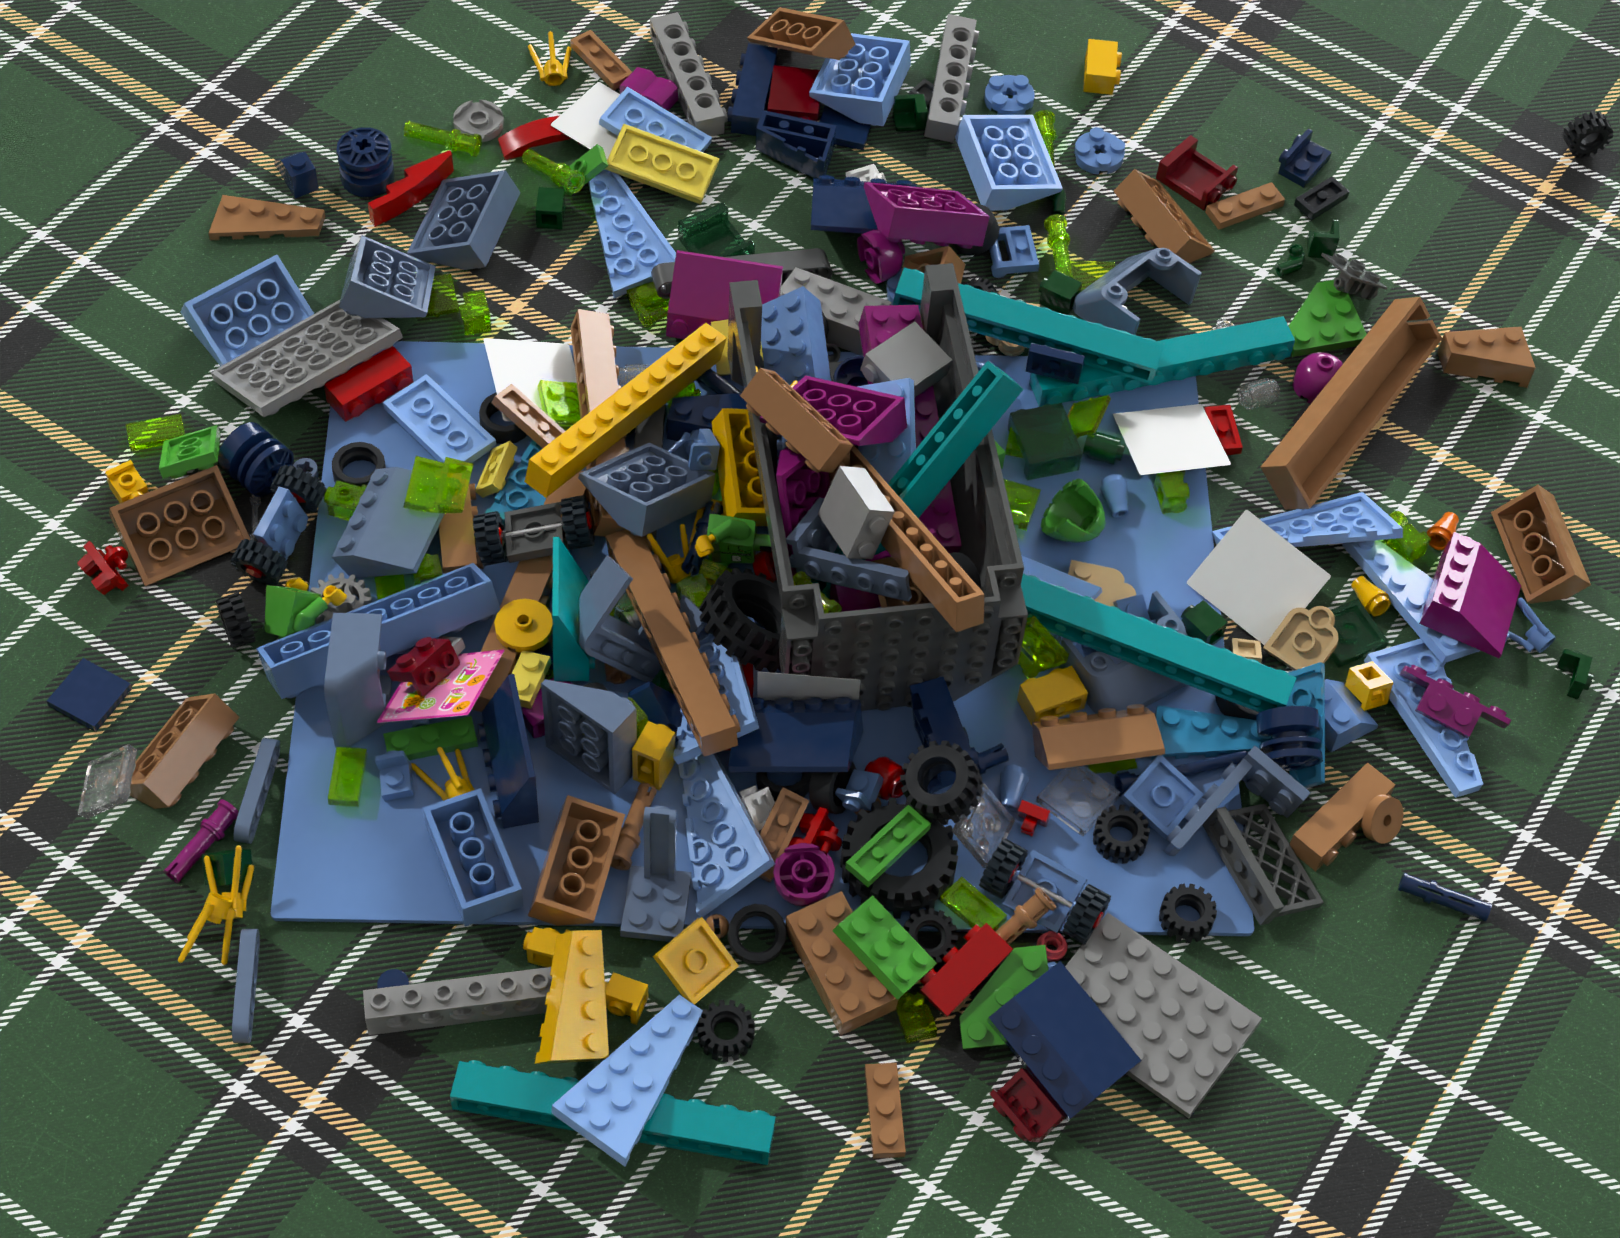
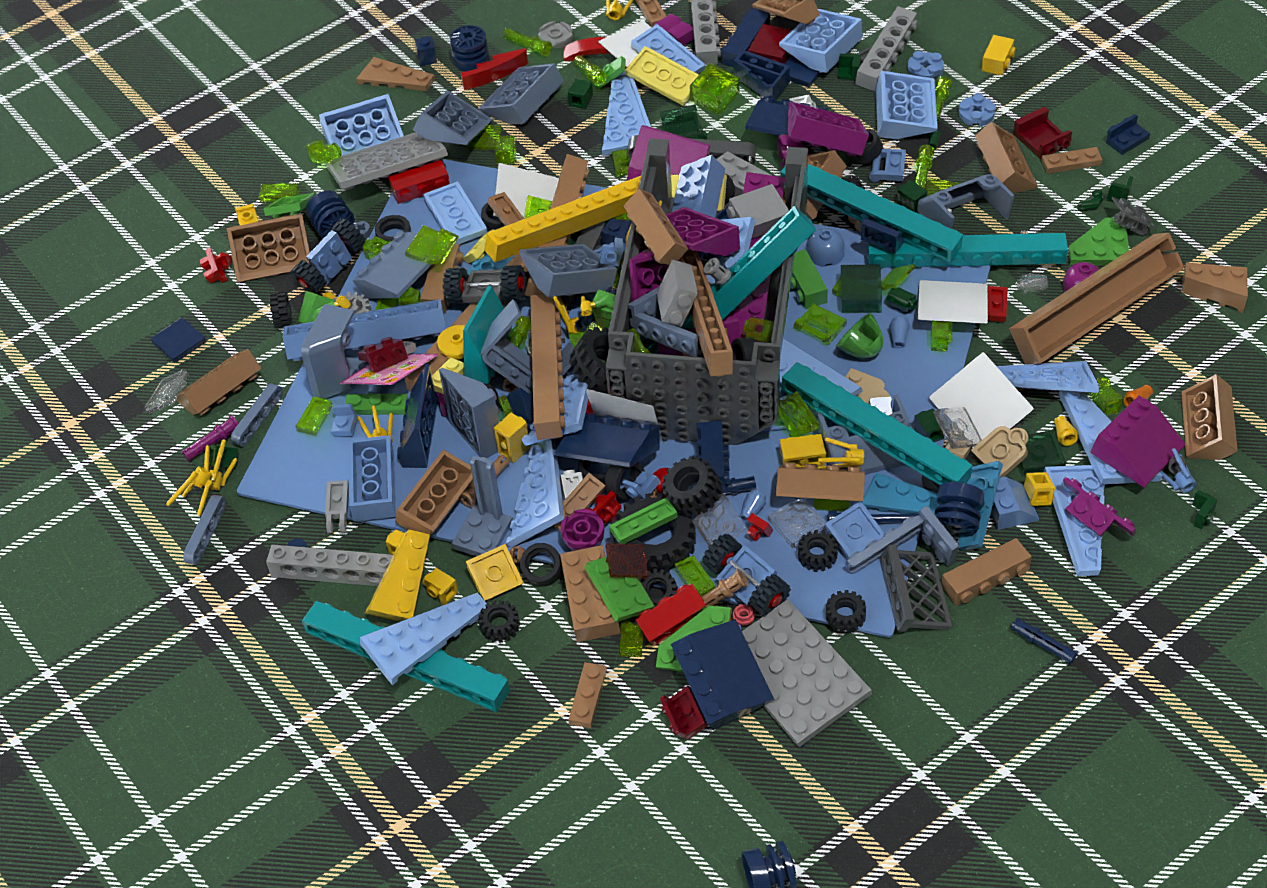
camera: 25 degrees right, 5 degrees down
(206, 361) = (322, 152): none -> clear neon green leg
(432, 905) = (336, 504): none -> light grey hinge
(740, 173) = (714, 88): none -> clear neon green brick
(886, 908) = (626, 560): none -> clear red piece
(898, 471) = (717, 271): none -> light grey bush
(969, 543) = (765, 335): none -> clear neon green brick
(1126, 693) = (851, 457): none -> yellow plant
(1242, 620) = (958, 427): none -> clear tile
(1321, 198) = (1130, 162): black plate -> none
(1382, 819) = (1020, 584): medium nougat piece -> none
(1522, 619) = (1175, 468): none -> dark grey hinge

